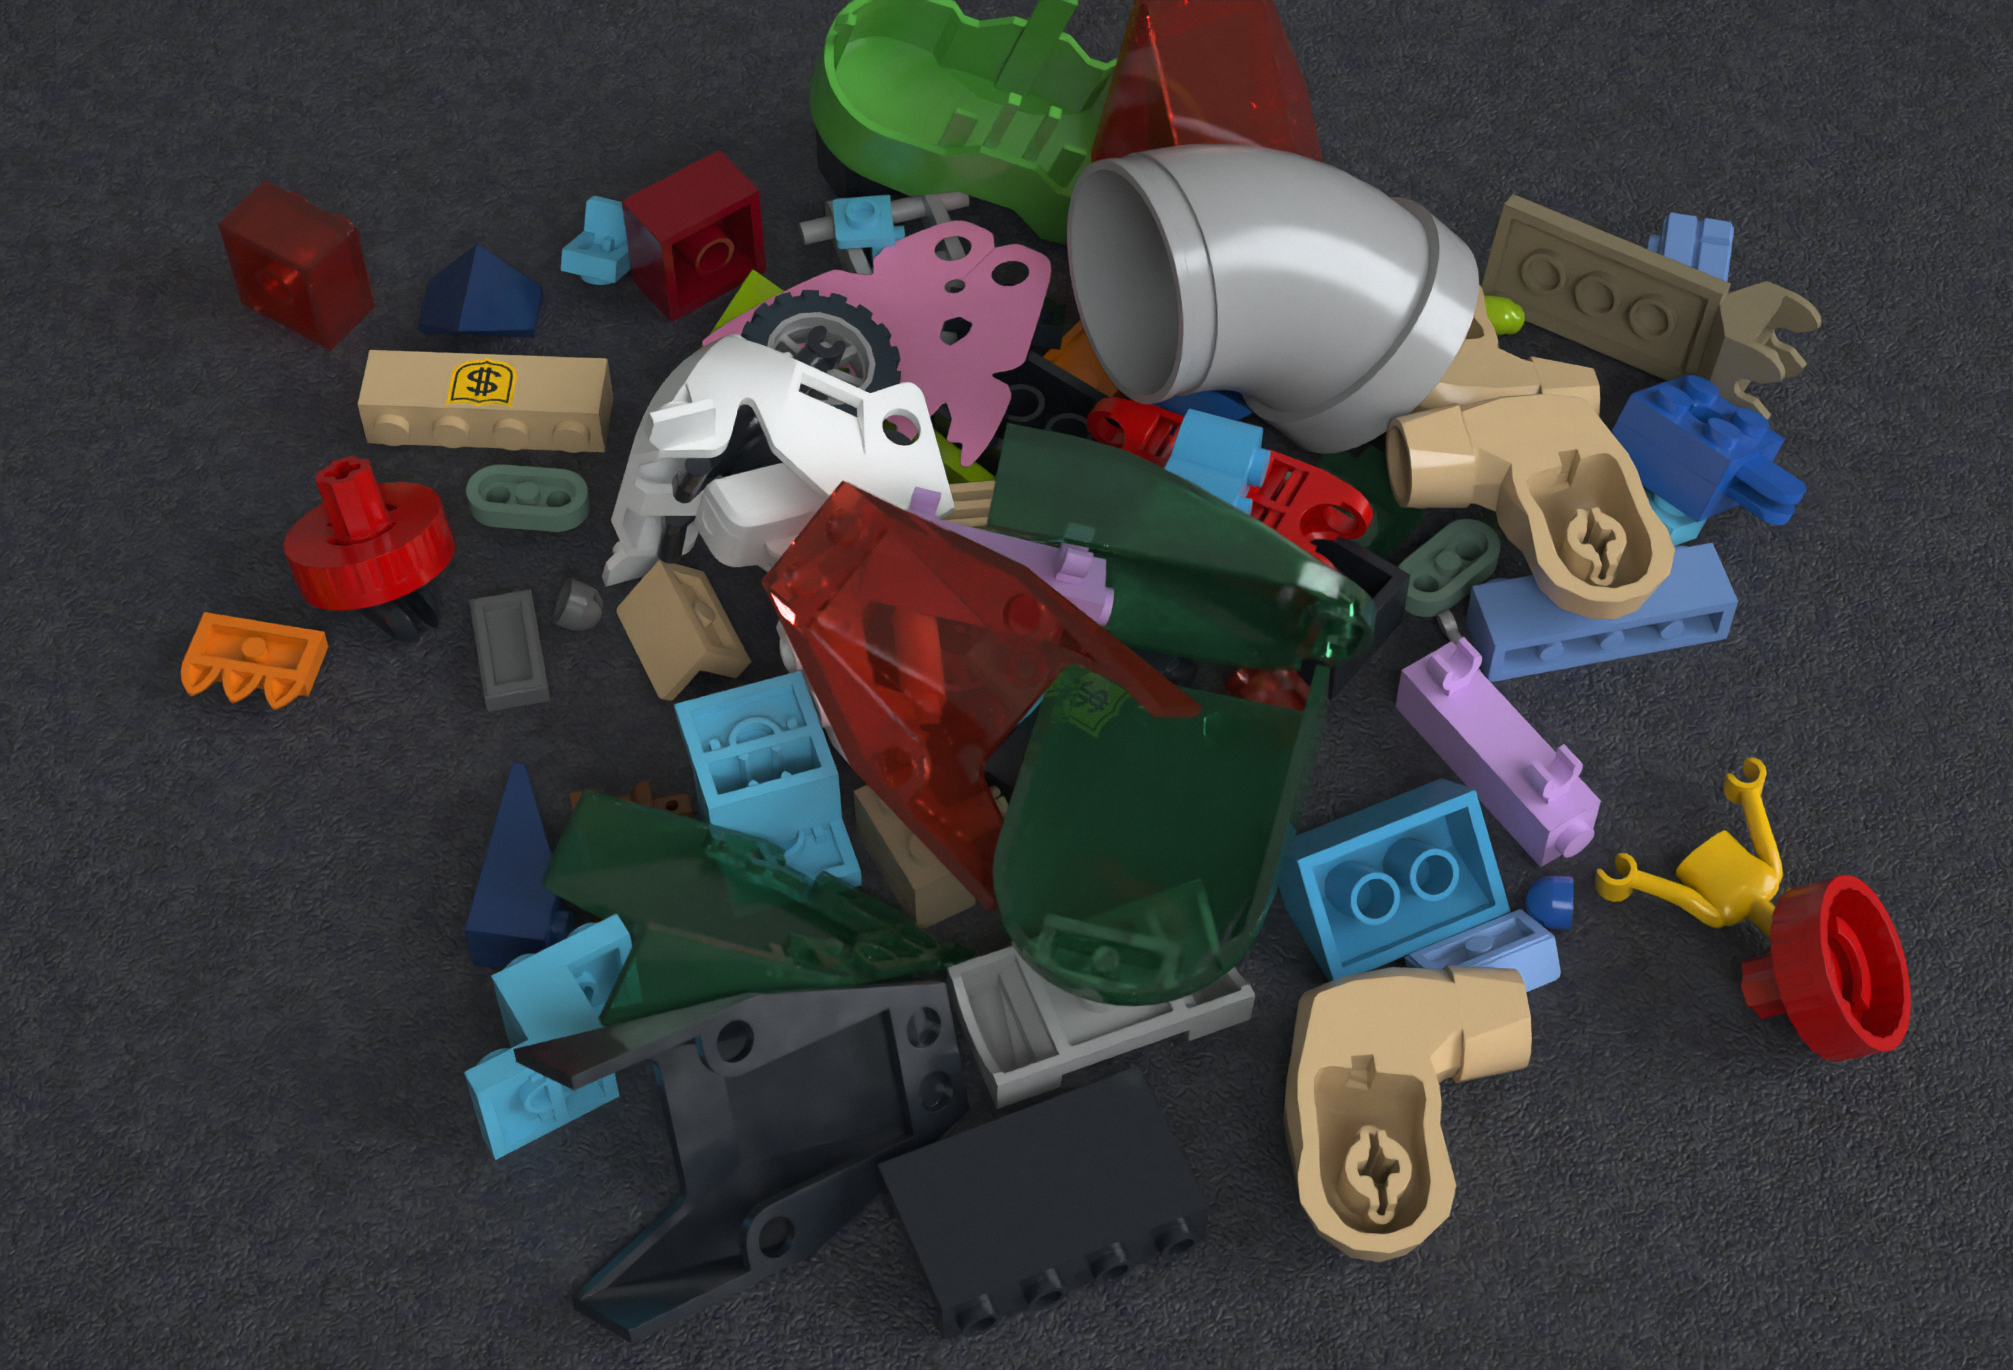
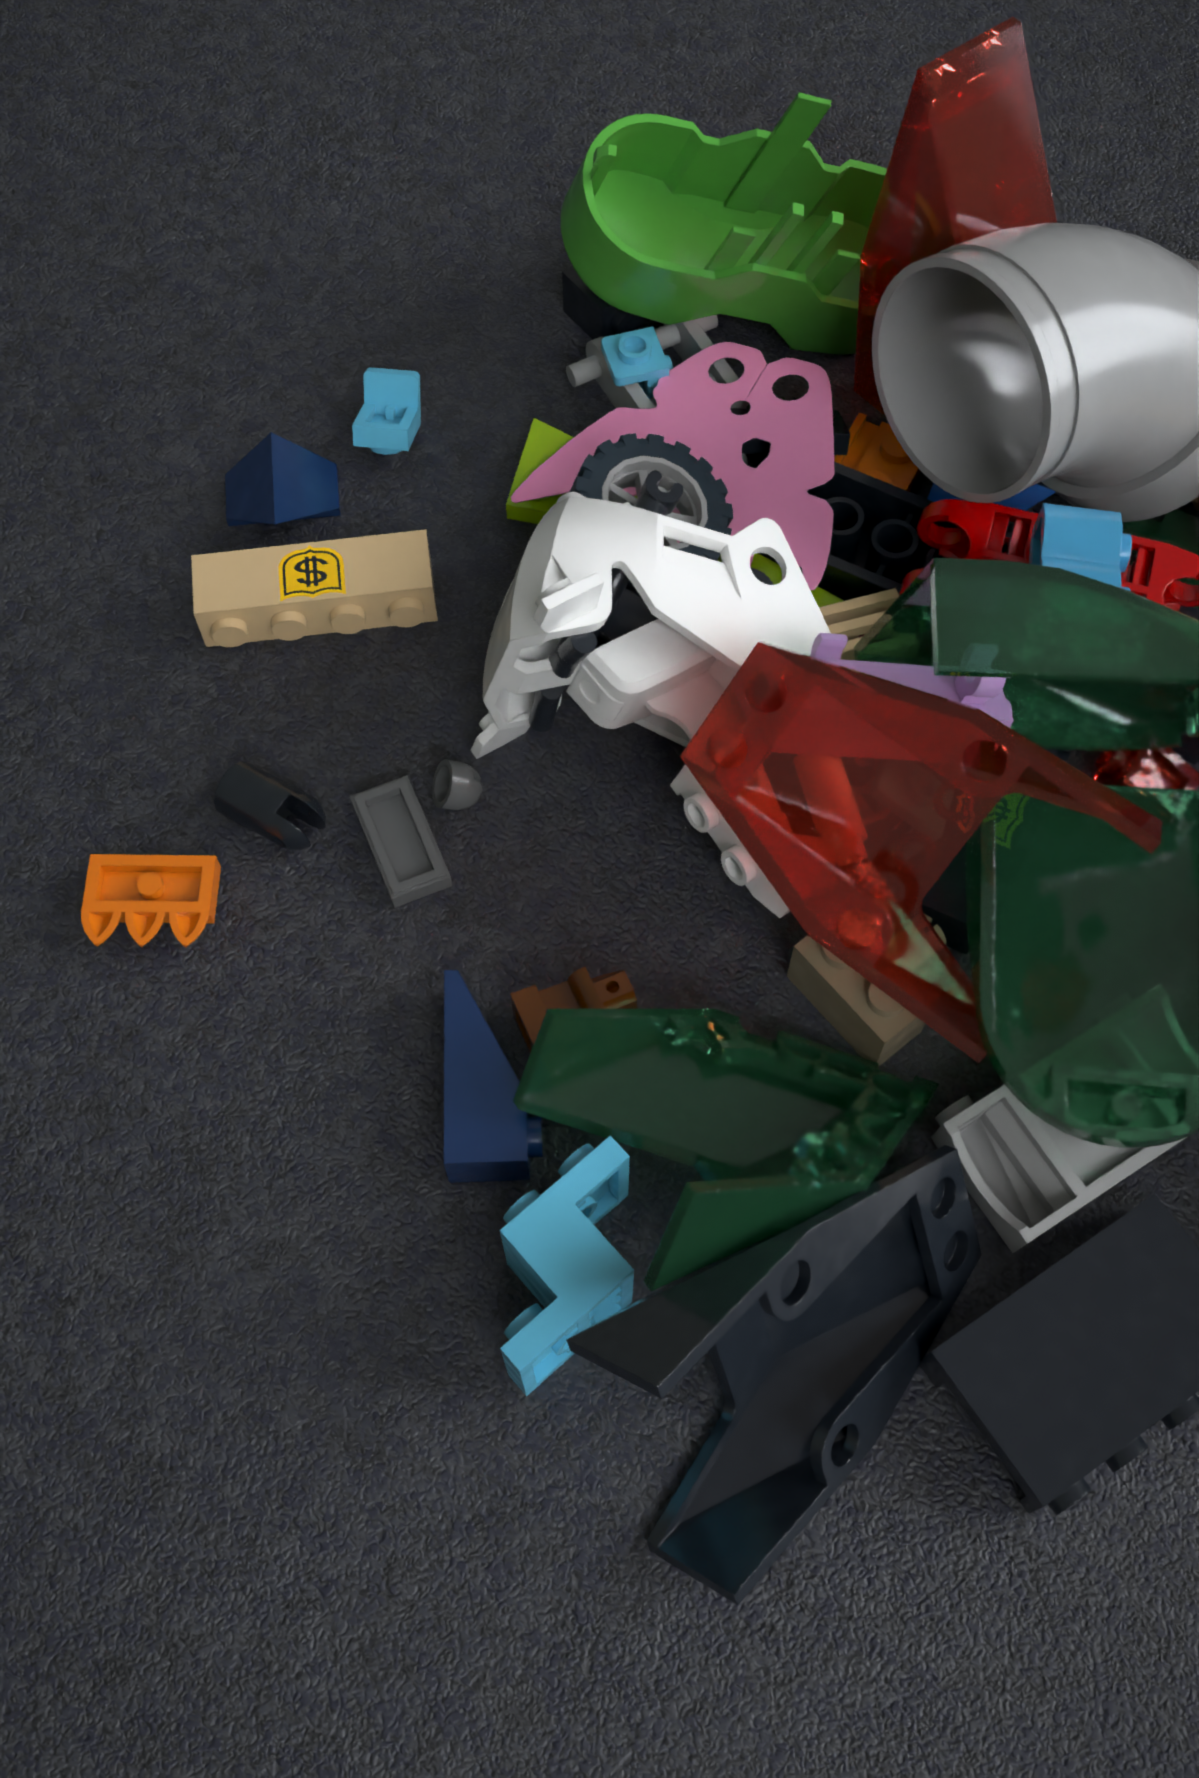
camera: 10 degrees left, 10 degrees up
(297, 264) = (98, 477): clear red brick -> none
(367, 539) = (260, 750): red piece -> none
(530, 498) = (381, 681): sand green plate -> none
(680, 628) = (563, 794): tan panel -> none
(694, 235) = (476, 391): dark red brick -> none
(770, 772) = (705, 940): medium azure bracket -> none

